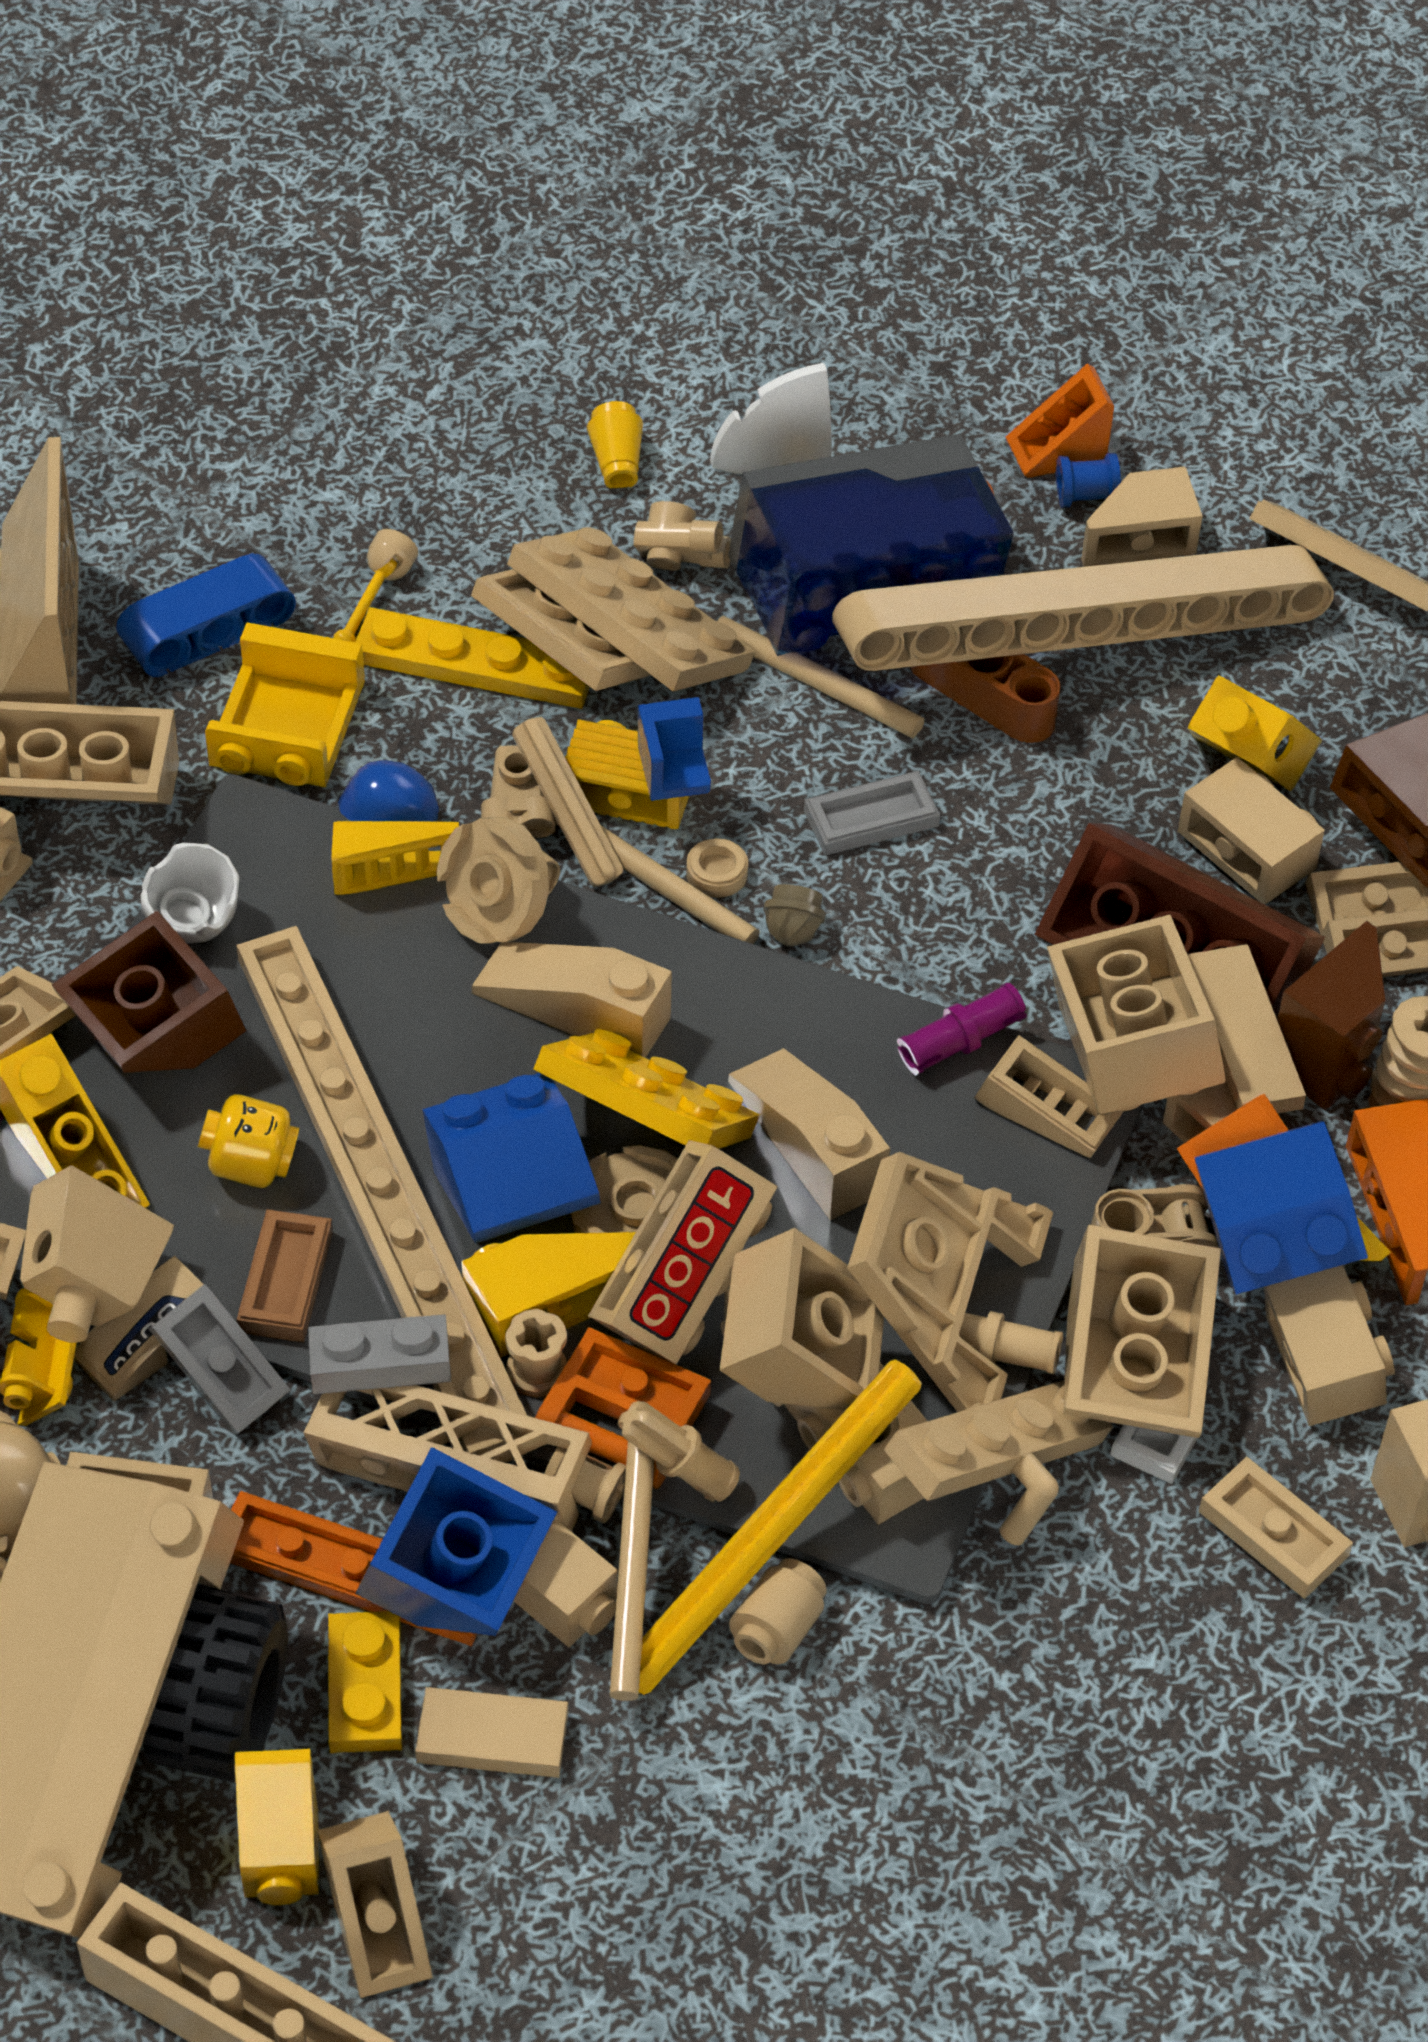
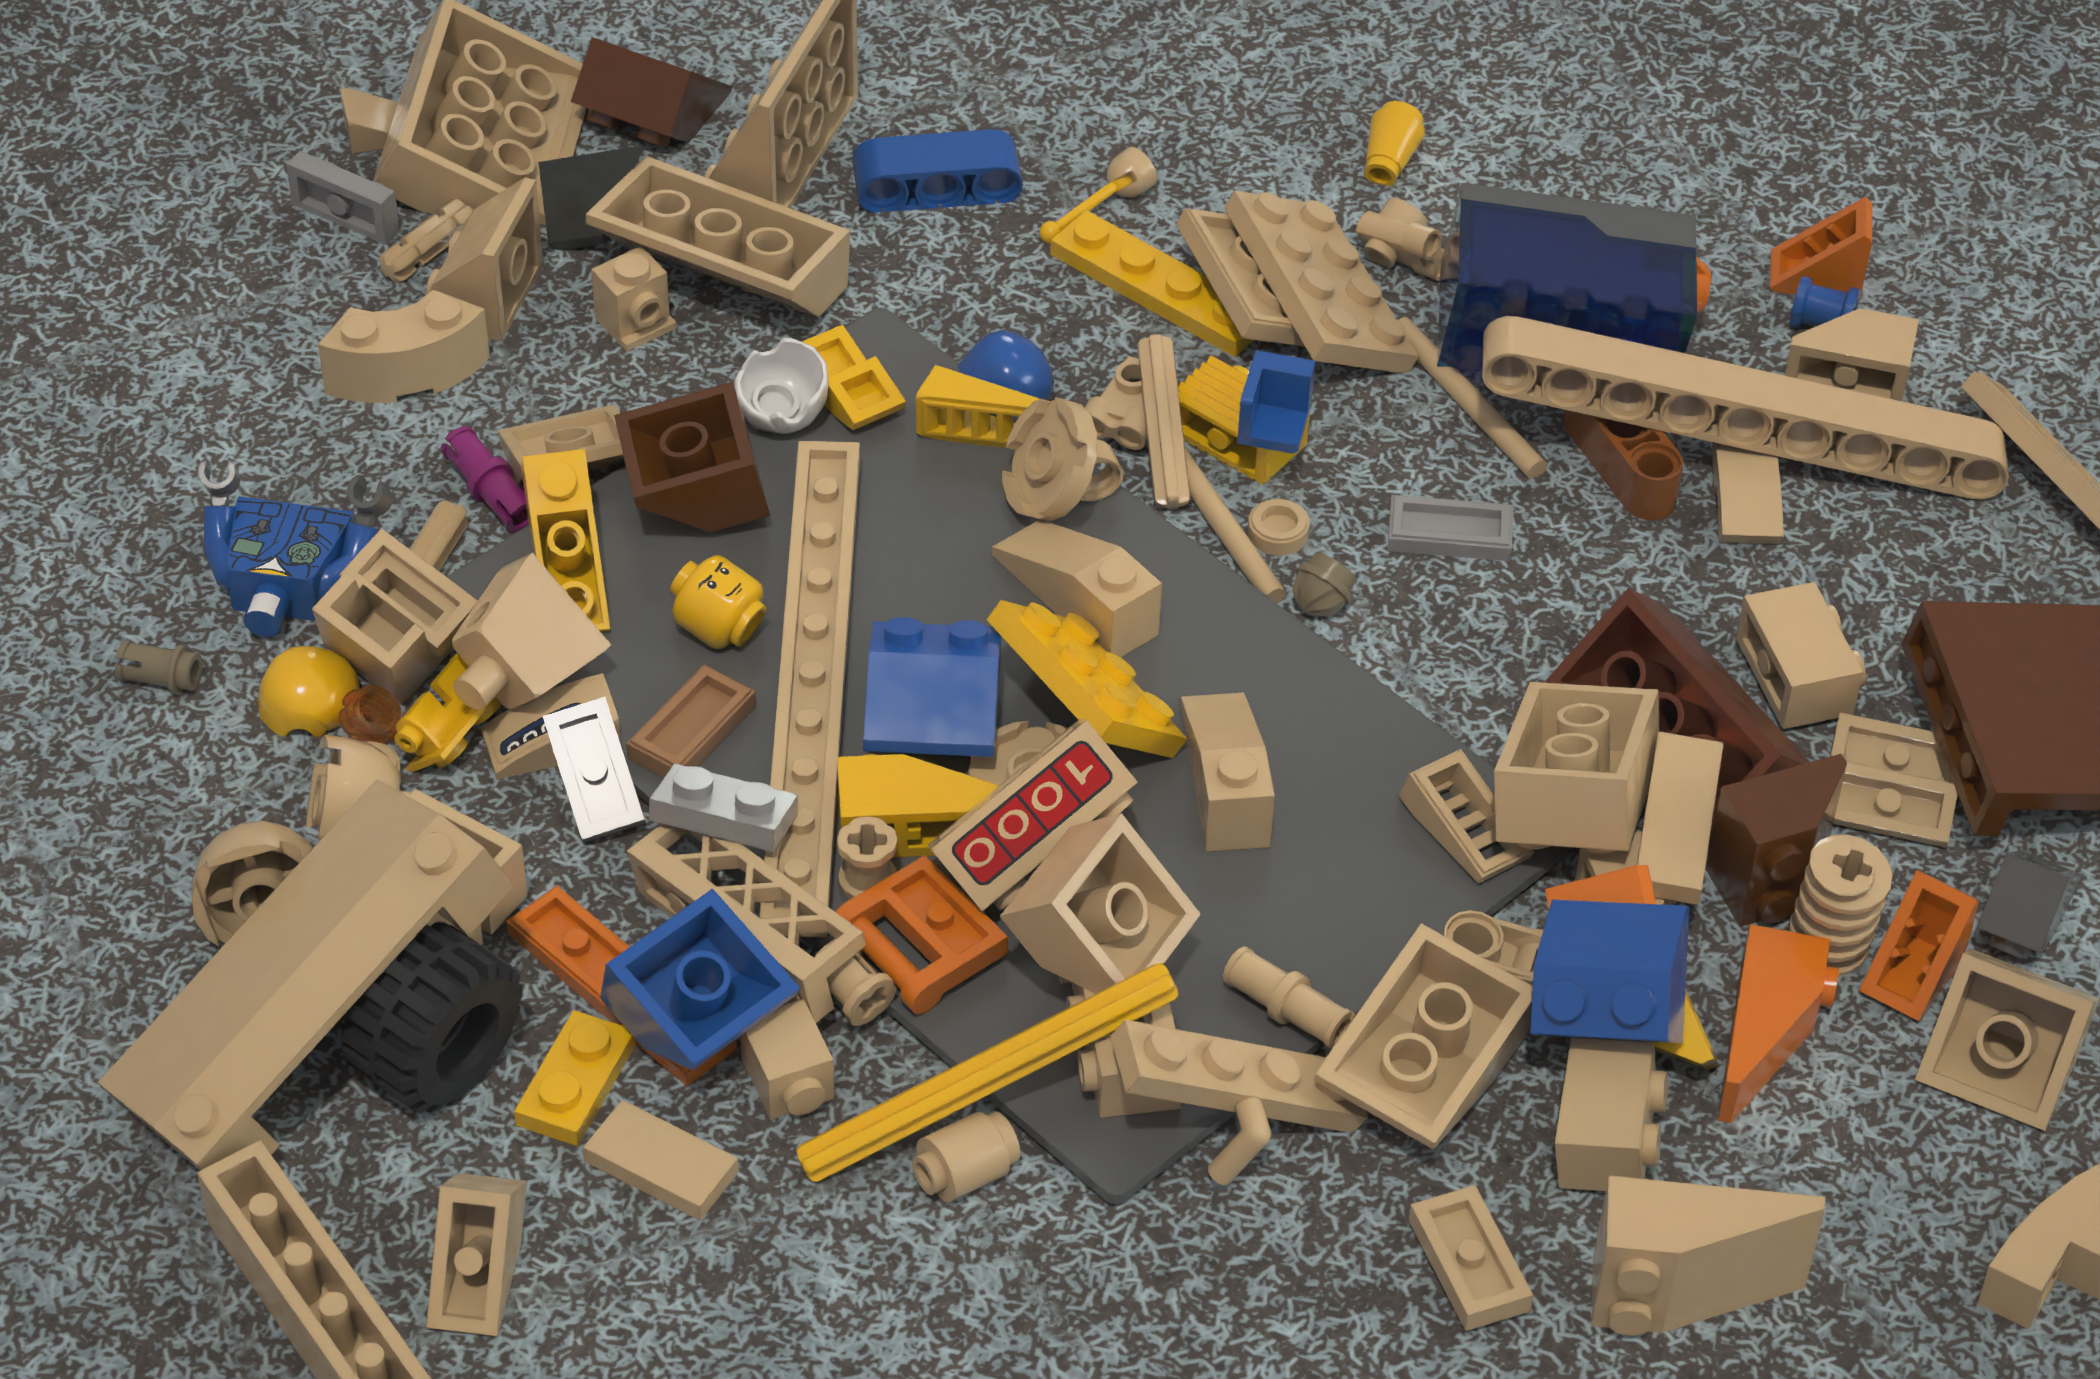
camera: 25 degrees right, 5 degrees down
(265, 866) = (857, 387): none -> yellow slope
(277, 1825) = (422, 1147): yellow slope -> none
(287, 706) = (967, 268): yellow panel -> none
(632, 1575) = (851, 1060): tan bar -> none
(679, 1451) = (938, 979): tan axle -> none
(781, 427) = (1551, 161): white brick -> none
(922, 1259) = (1248, 891): tan wing -> none
(961, 1028) = (1417, 729): magenta pin -> none
(1117, 687) = (1747, 496): none -> tan slope
(1152, 1451) = (1399, 1154): white tile -> none
(1252, 729) = (1838, 560): yellow torso -> none

